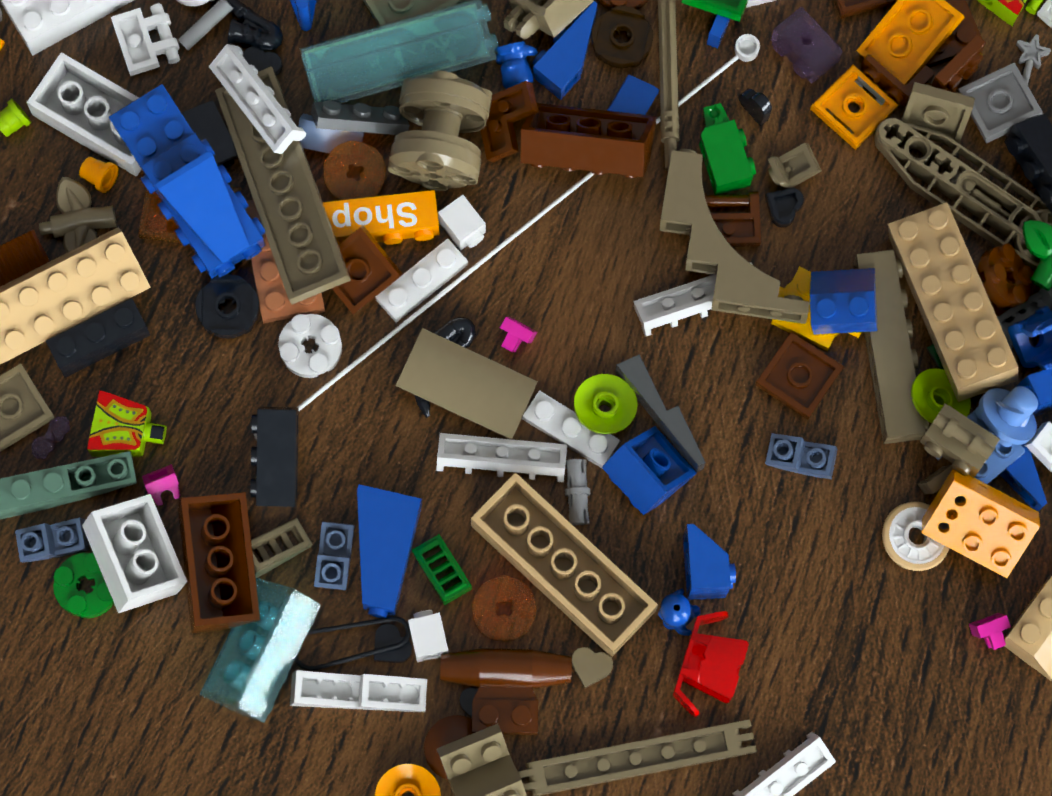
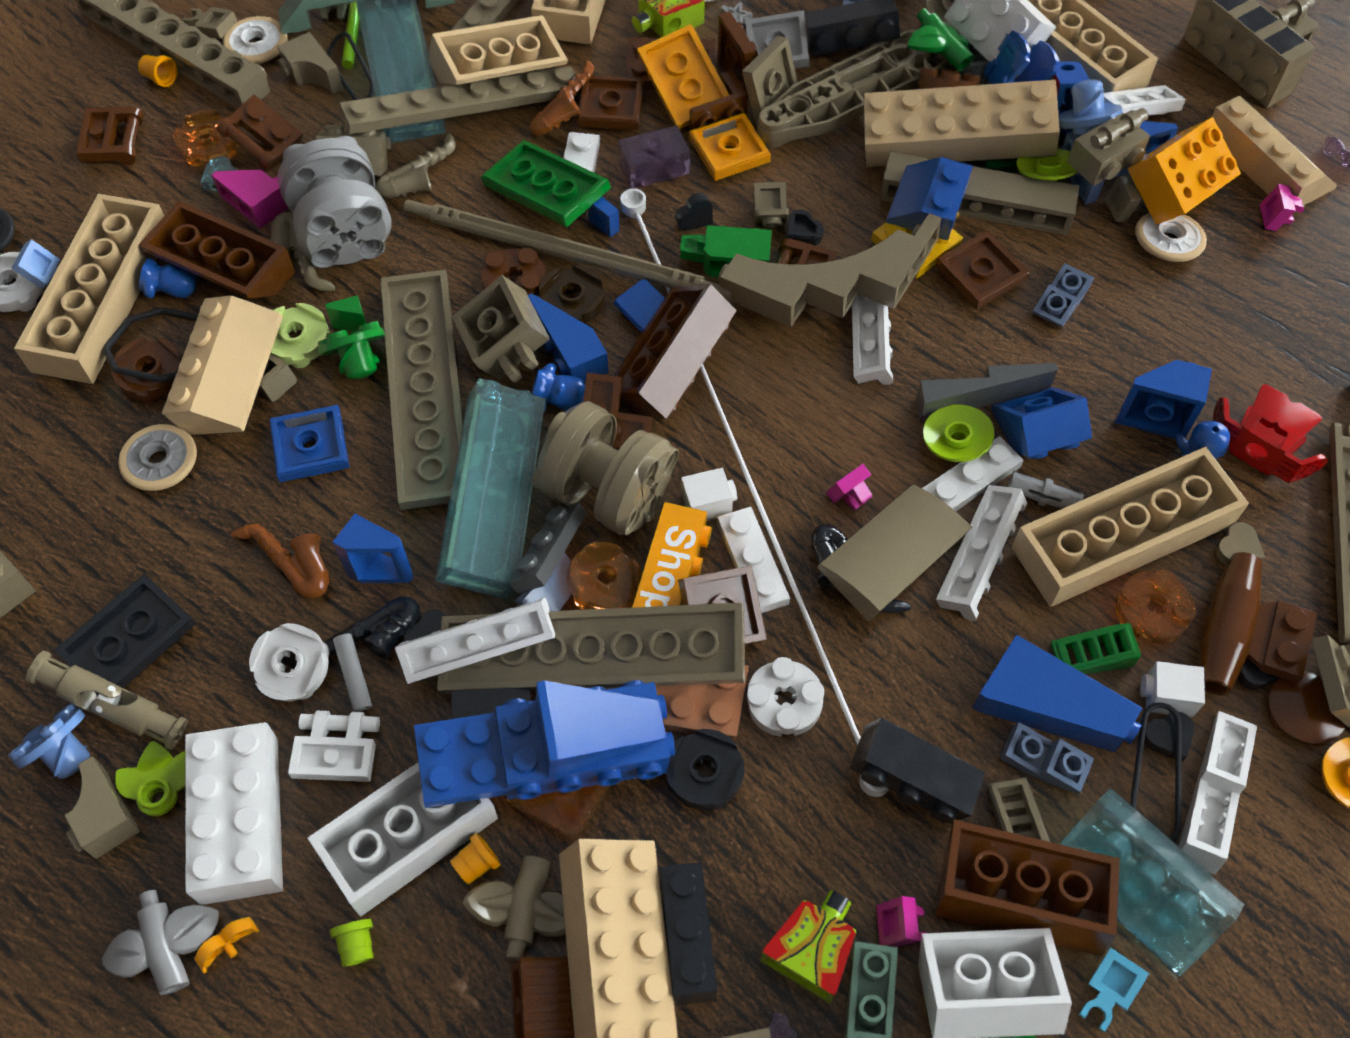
camera: 65 degrees left, 15 degrees down
(173, 646) = (1117, 983): none -> medium azure plate

